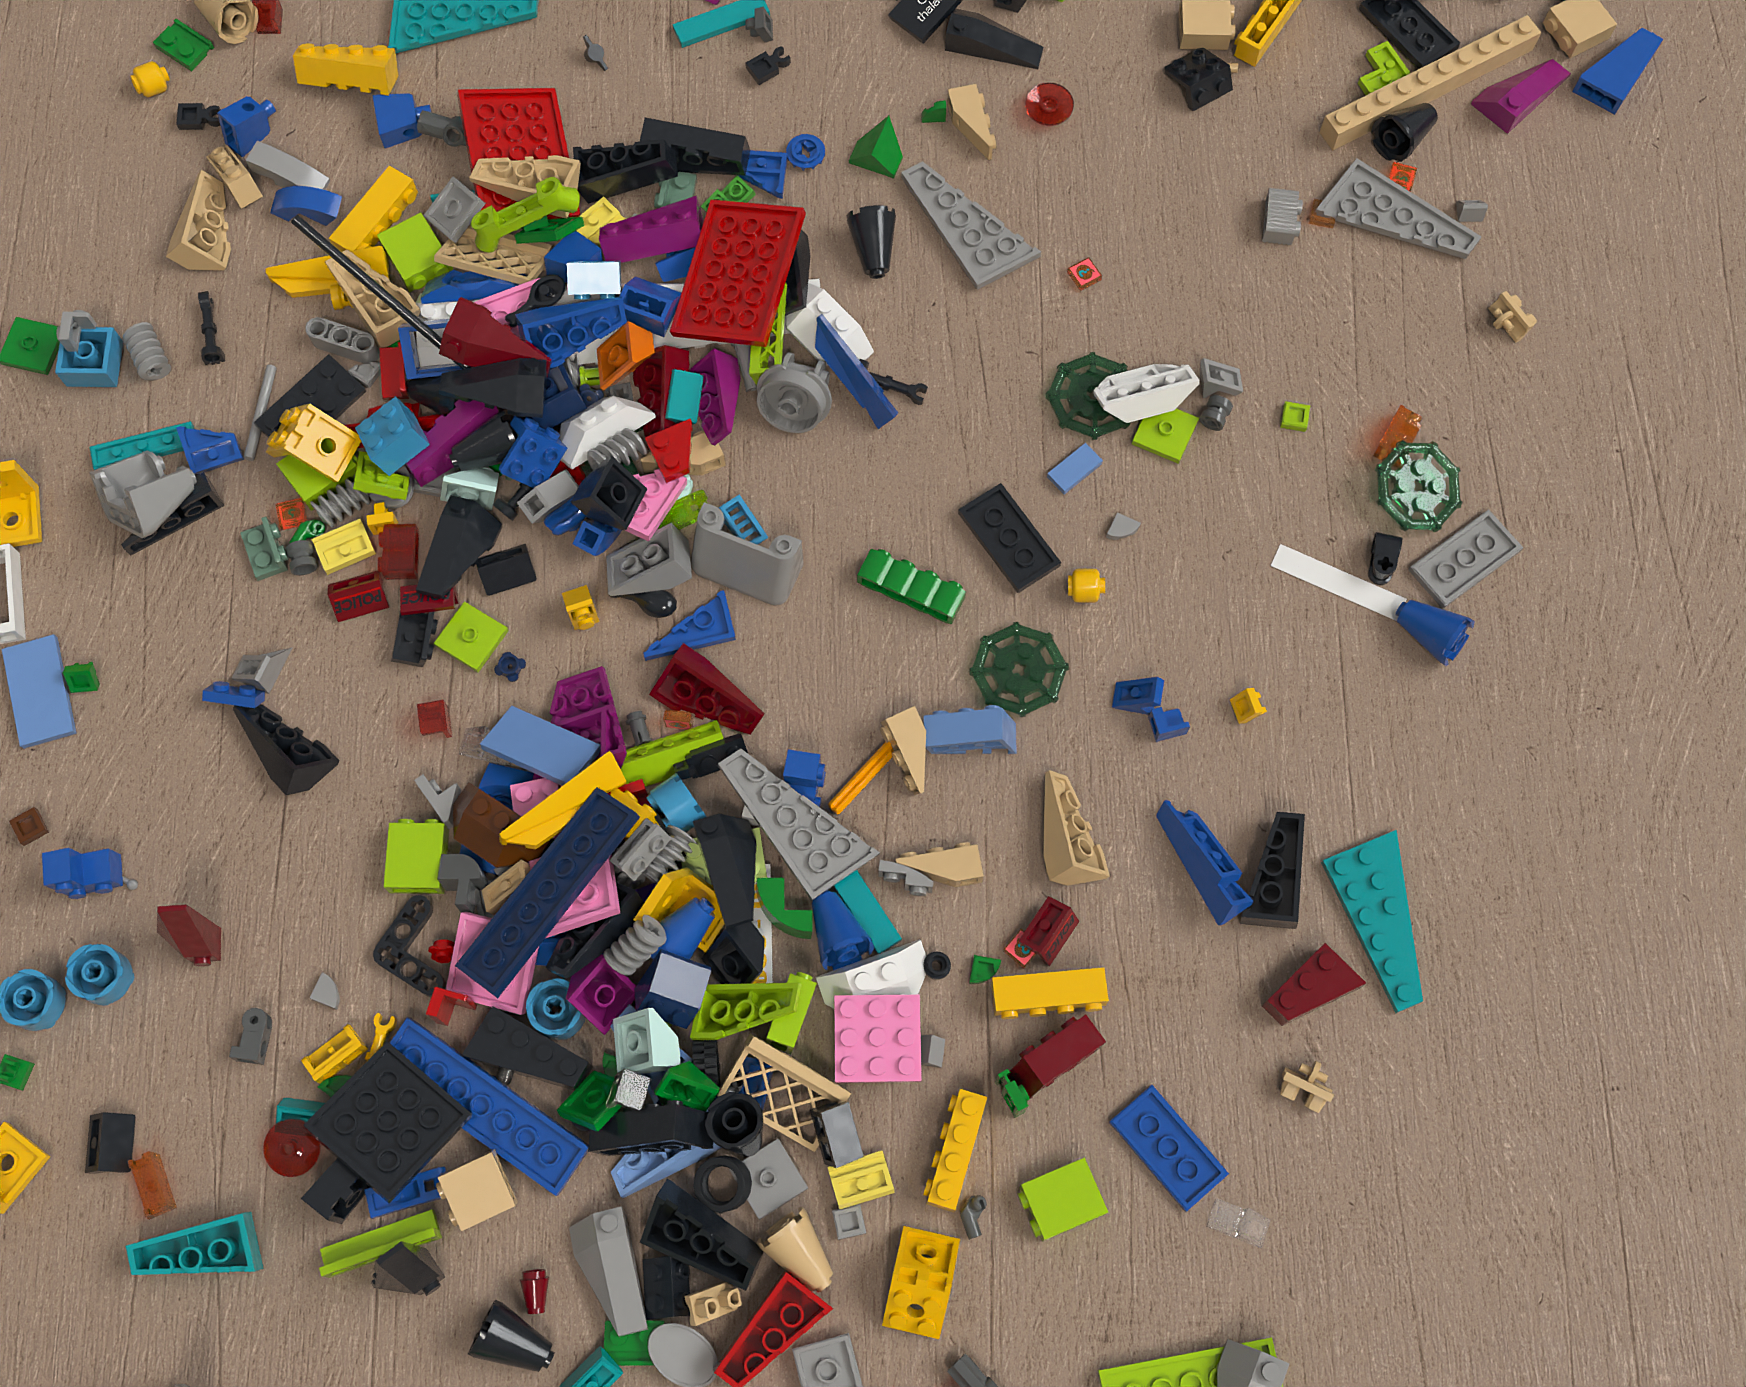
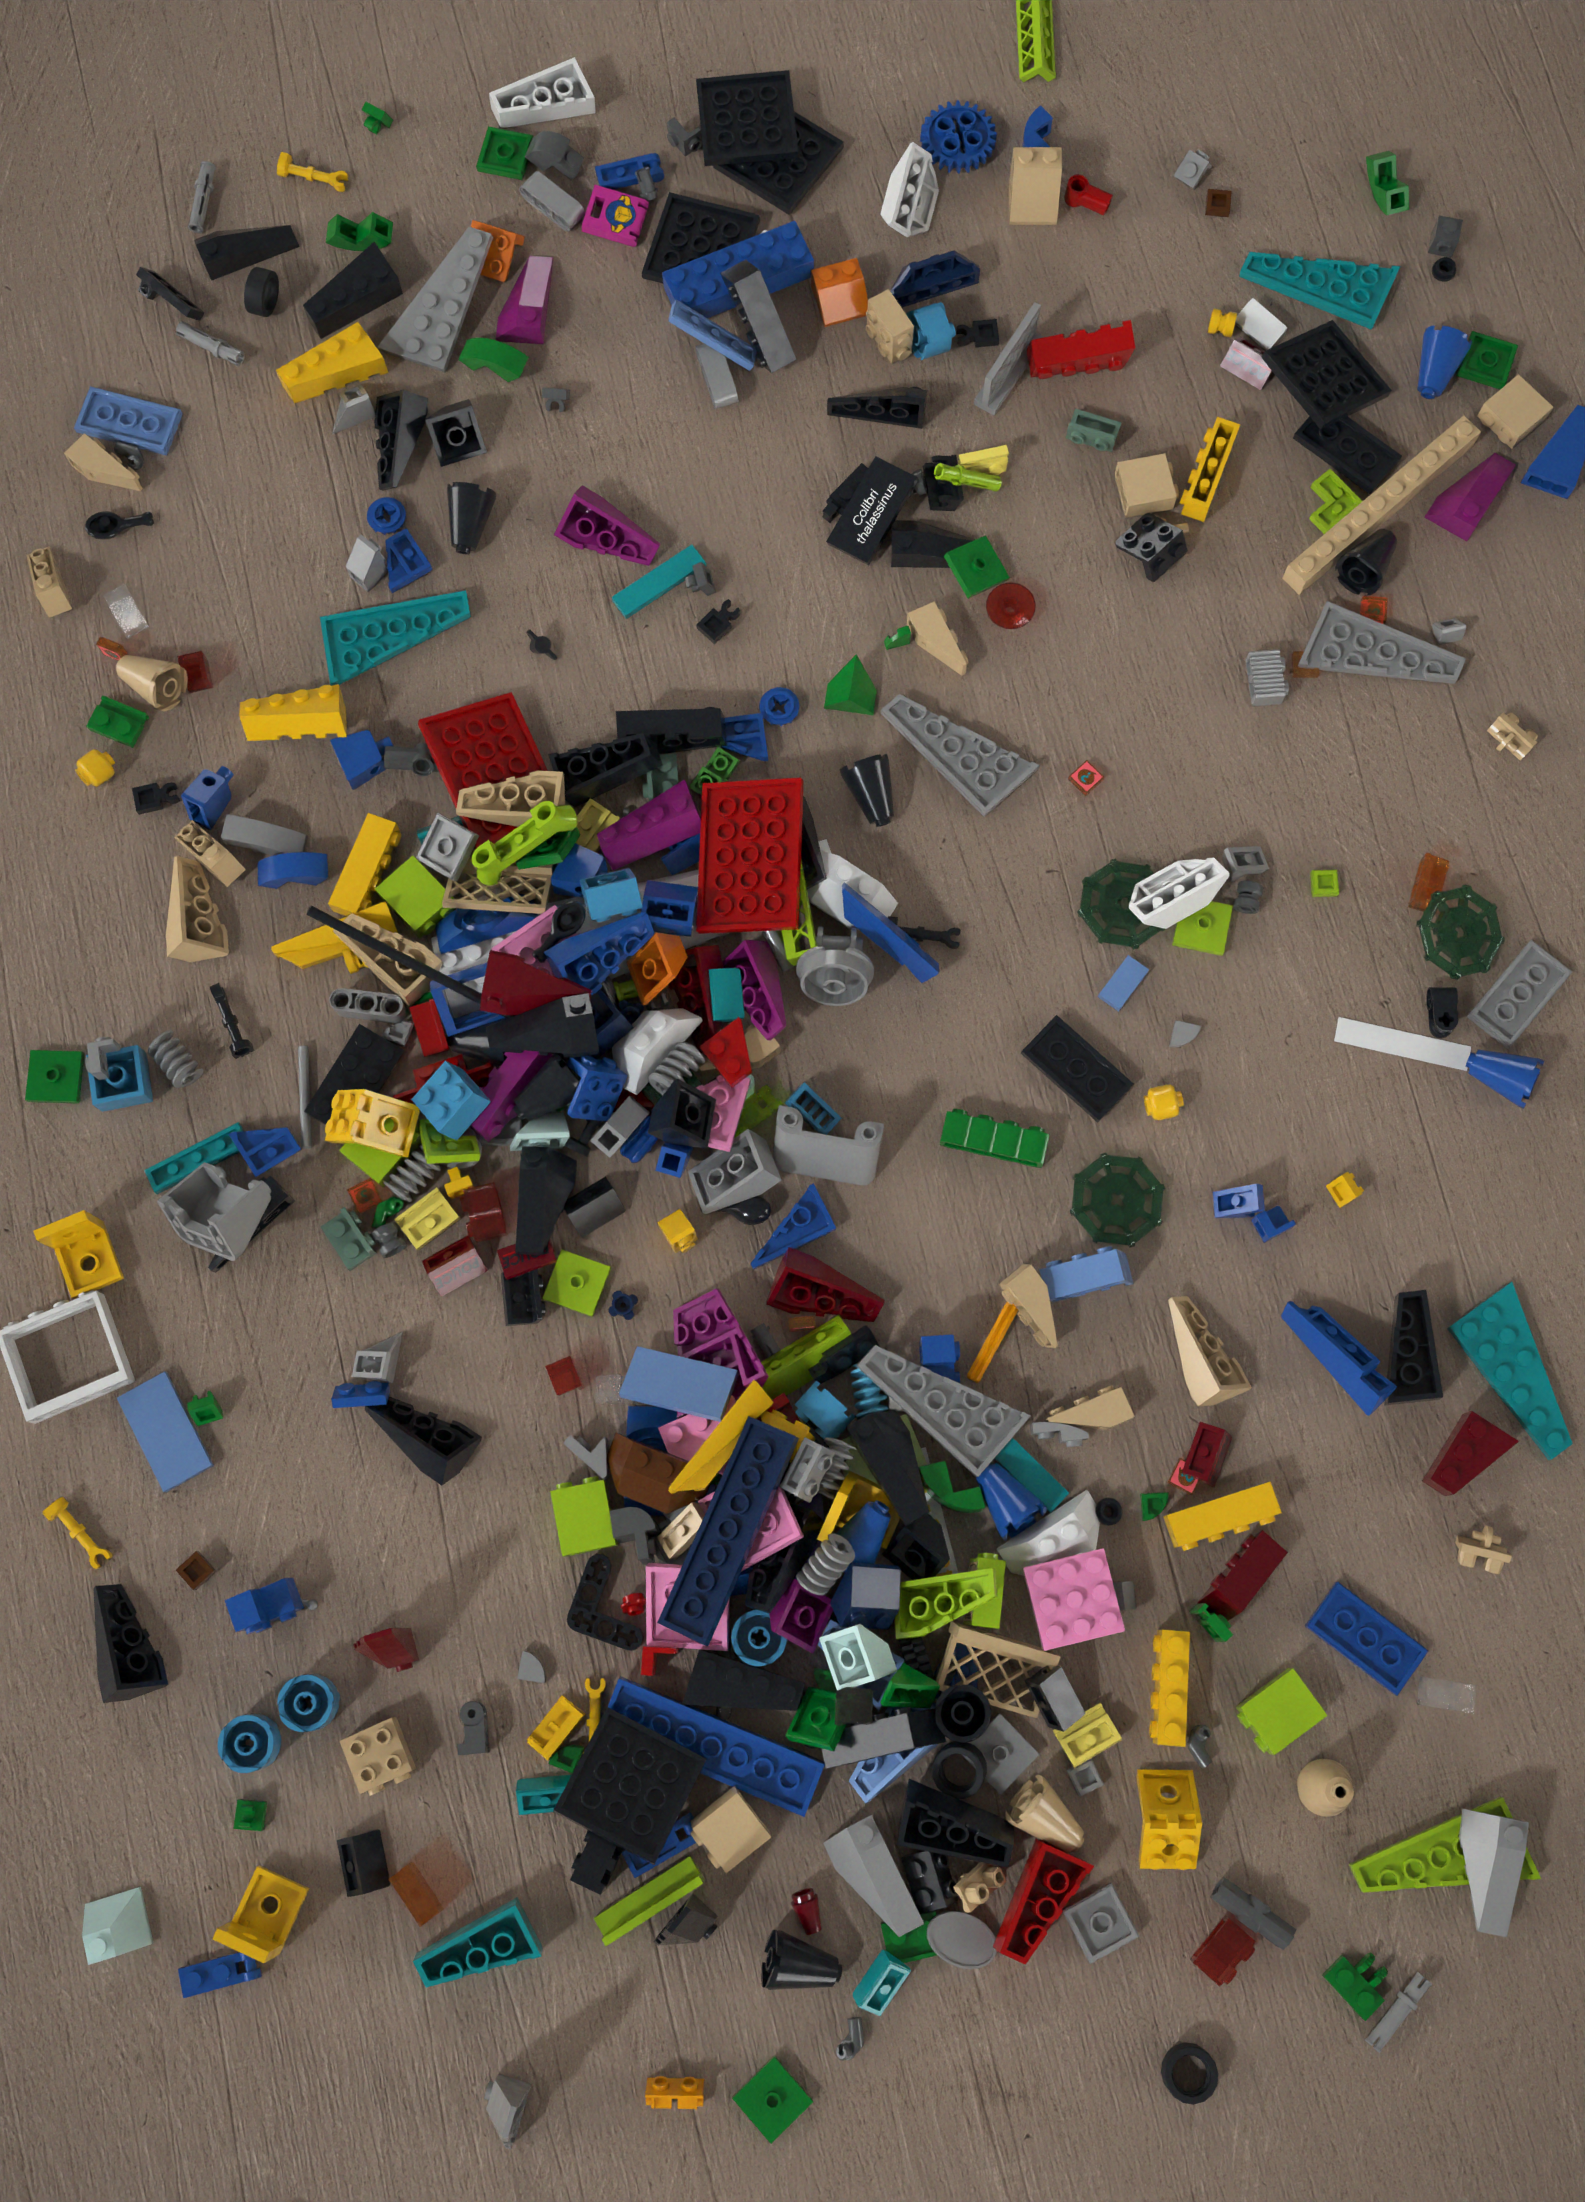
camera: 10 degrees left, 5 degrees up
(153, 1042) = (378, 1756): none -> tan brick
(304, 1148) = (539, 1814): clear red dish -> none
(724, 798) = (867, 1394): none -> medium azure piece
(1025, 62) = (976, 566): none -> green plate
(1079, 1288) = (1325, 1787): none -> tan cone

